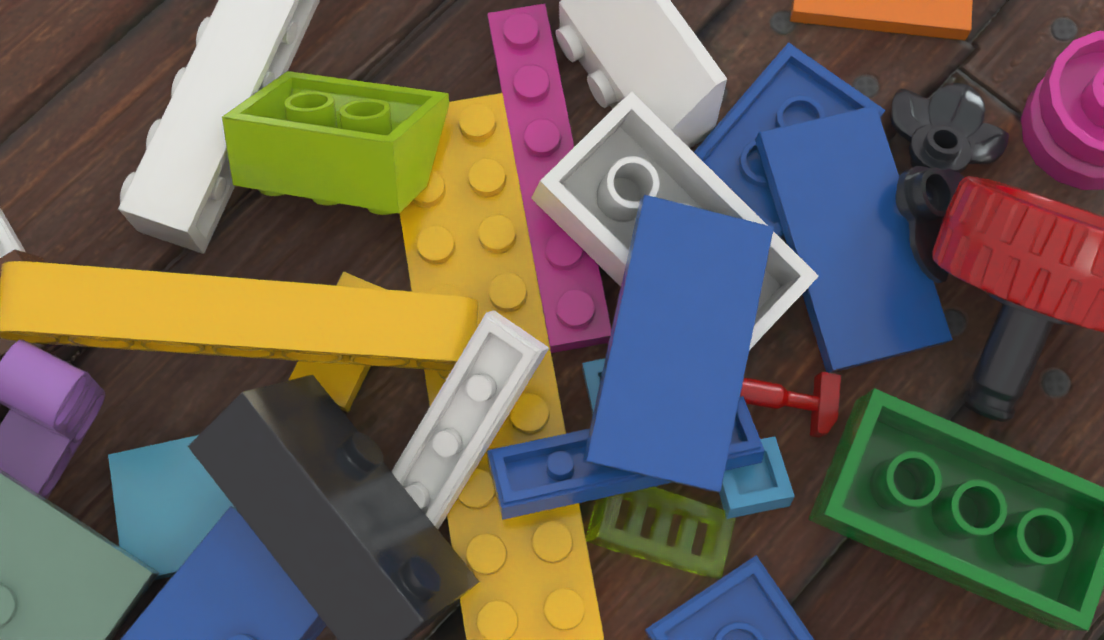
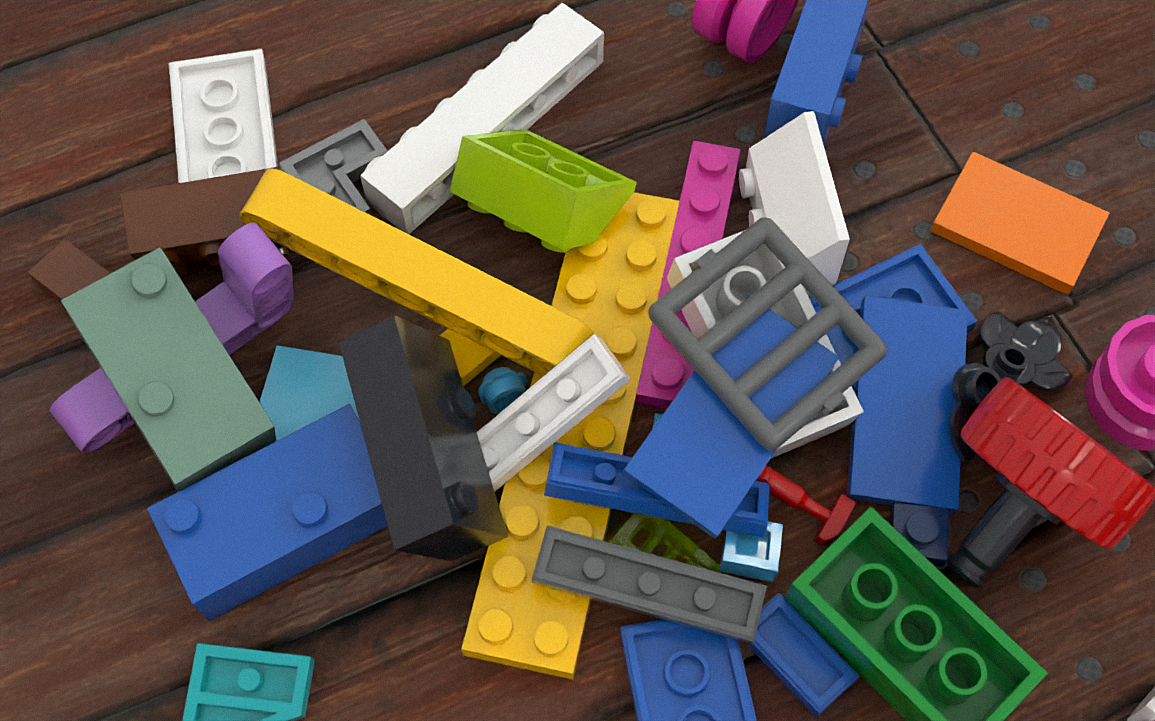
camera: 20 degrees right, 10 degrees down
(75, 208) = (338, 162): none -> flat silver plate
(397, 402) = (501, 388): none -> dark azure plate
(618, 287) = (737, 393): none -> dark grey bar
(660, 573) = (649, 584): none -> dark grey tile
(848, 576) = (801, 656): none -> blue tile
(922, 379) = (924, 529): none -> dark blue plate

